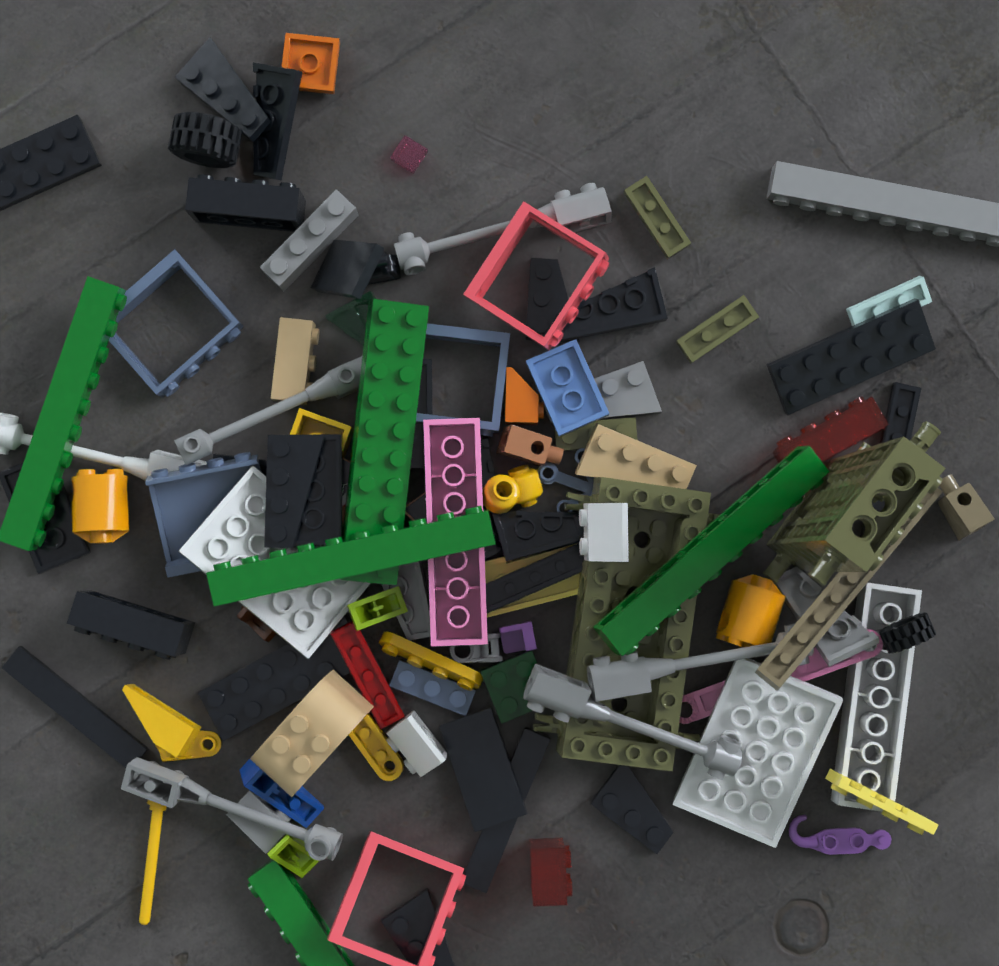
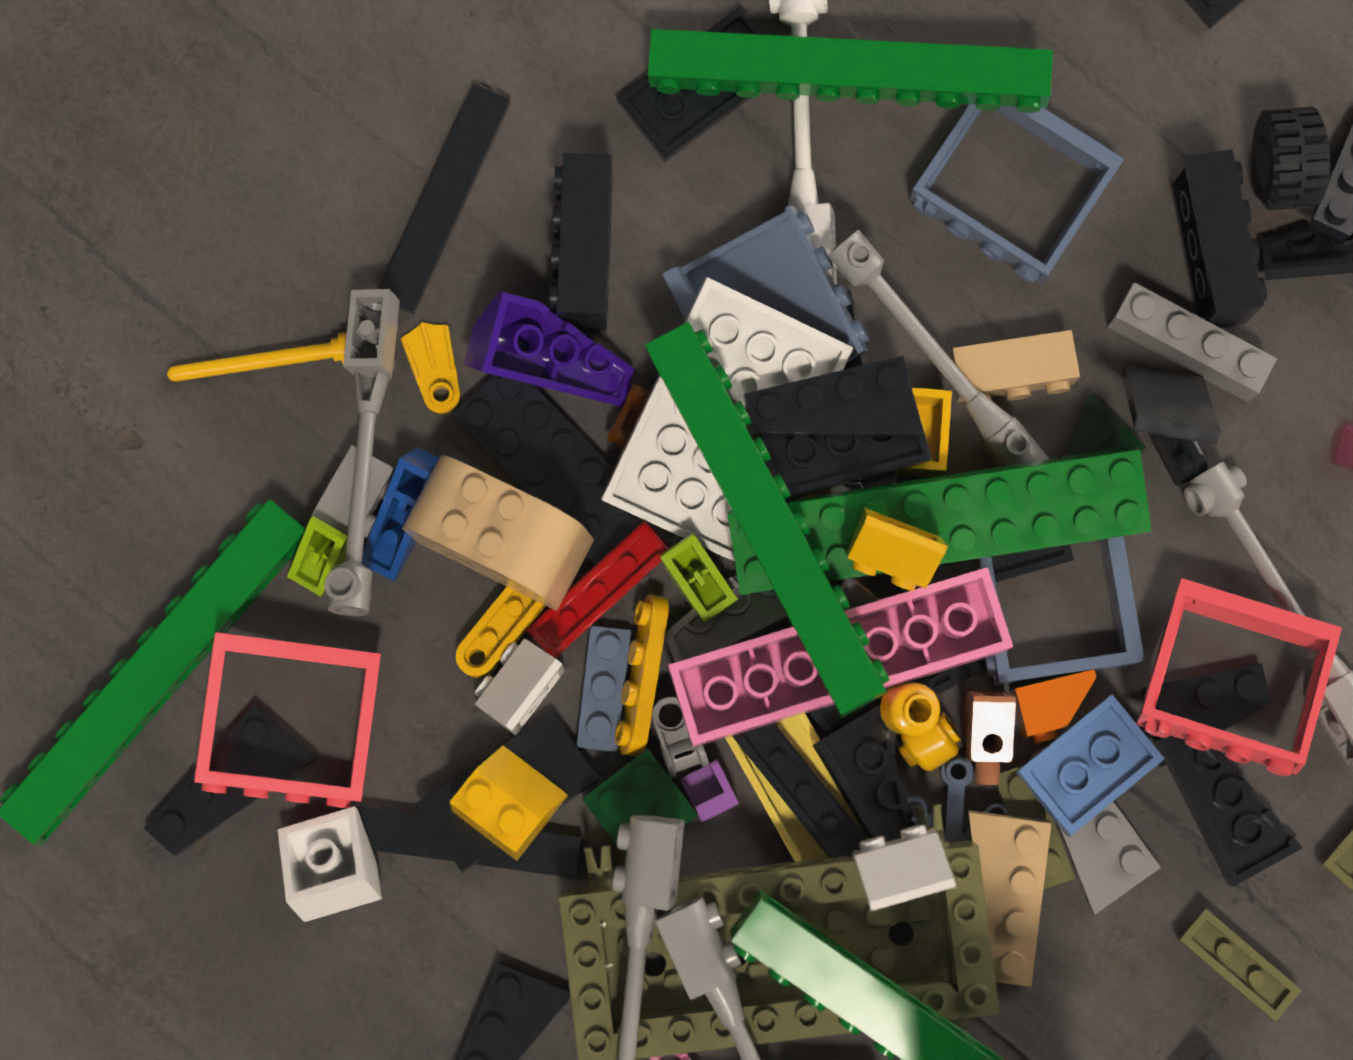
camera: 75 degrees right, 5 degrees down
(100, 505) = (736, 155): light orange cylinder -> none
(163, 724) = (448, 328): yellow slope -> none
(194, 675) = (535, 346): none -> dark purple wedge
(396, 477) = (895, 549): none -> yellow slope
(489, 771) = (507, 801): none -> yellow slope
(499, 899) = (328, 865): none -> white slope
(548, 871) = (387, 924): clear red brick -> none

